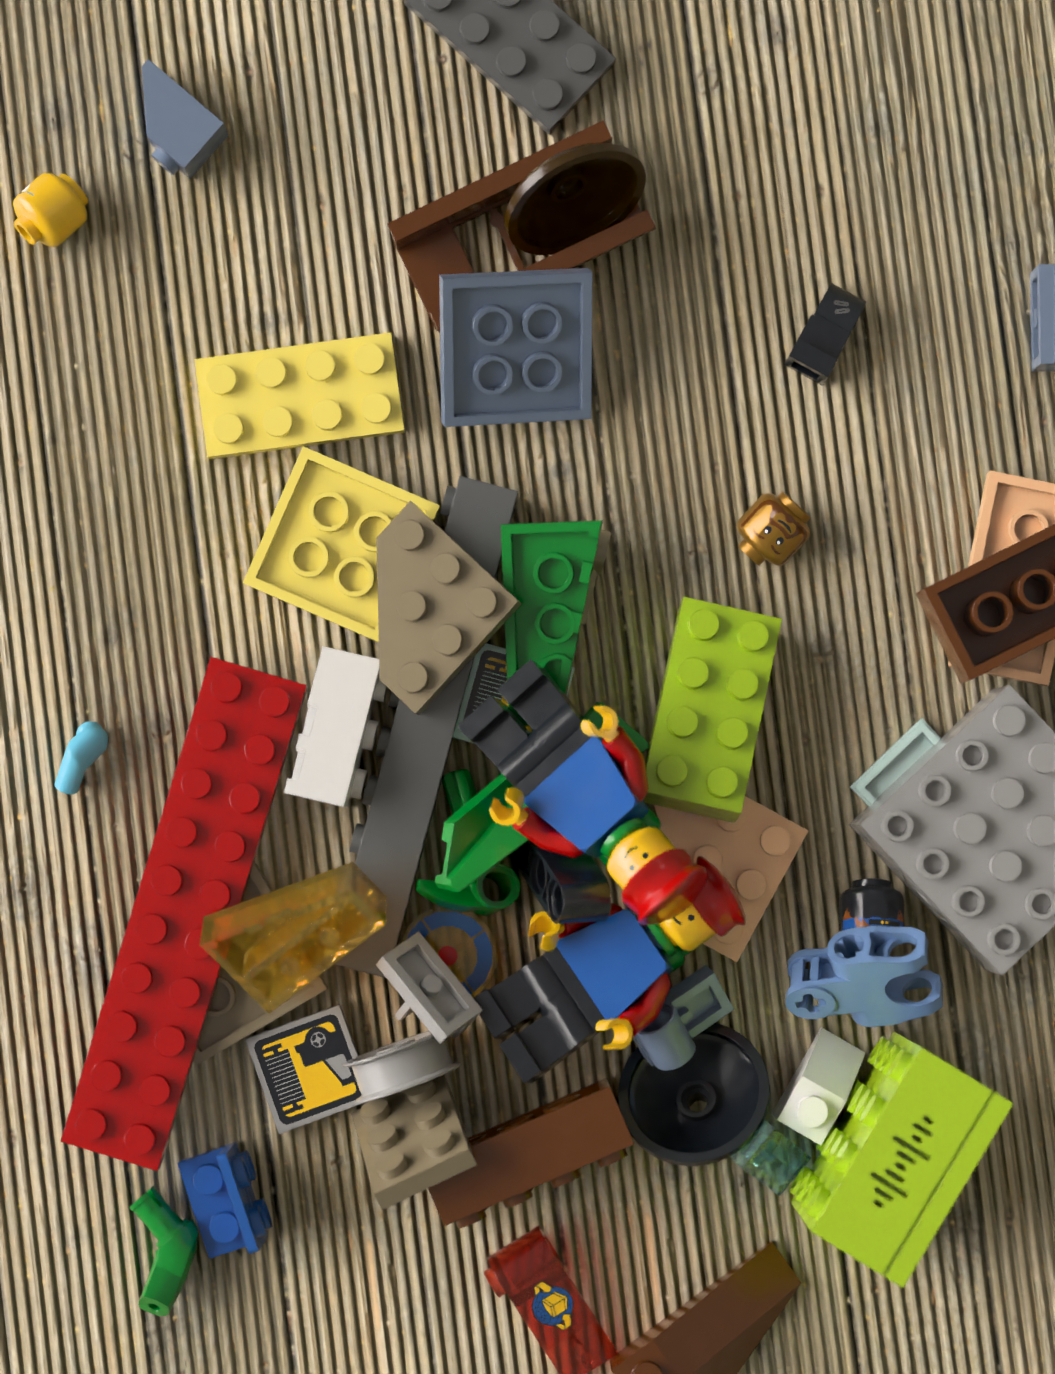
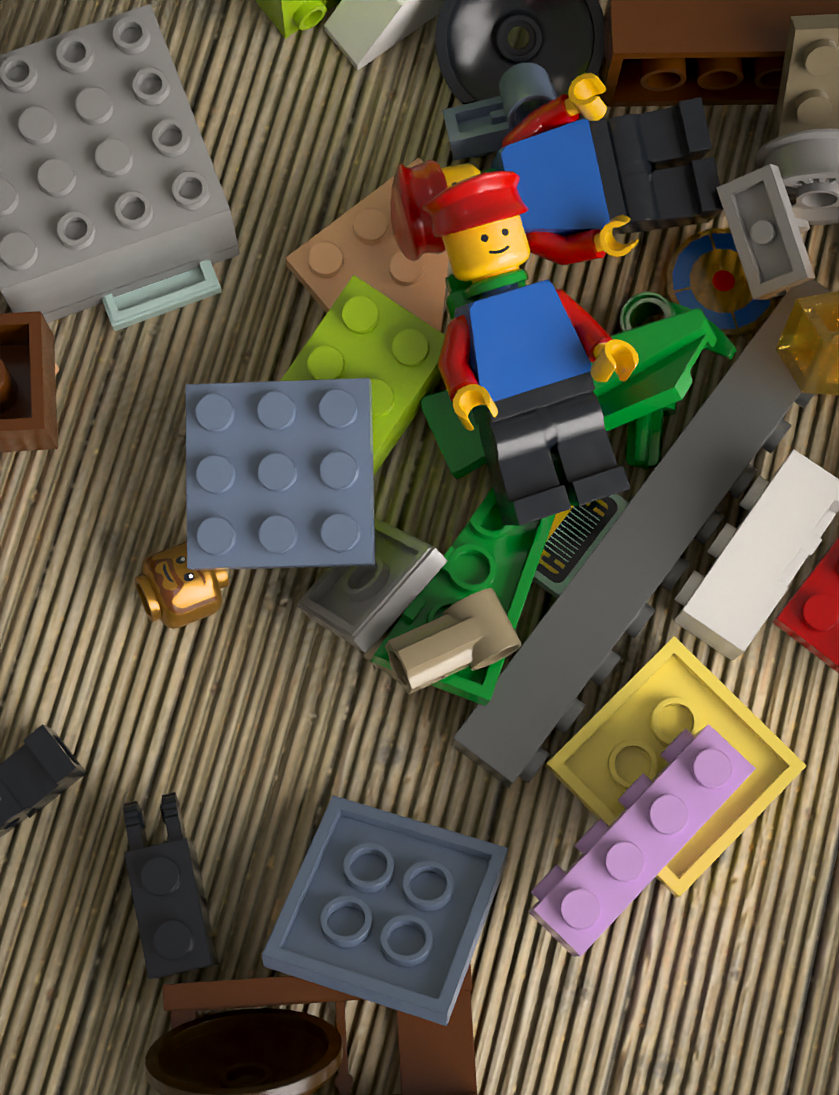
camera: 160 degrees left, 10 degrees down
(299, 395) = (674, 972): light yellow plate -> none
(348, 468) = (641, 841): none -> lavender brick
(431, 607) = (604, 643): dark tan plate -> none
(536, 560) = (469, 634): none -> dark tan piece
(565, 886) = (576, 260): black beam -> none
(627, 584) = (366, 600): none -> light grey tile
(680, 294) = (168, 894): none -> black hinge
(730, 630) = (279, 474): none -> sand blue plate
(862, 979) = (296, 79): medium blue piece -> none
(871, 904) = (257, 144): black head -> none

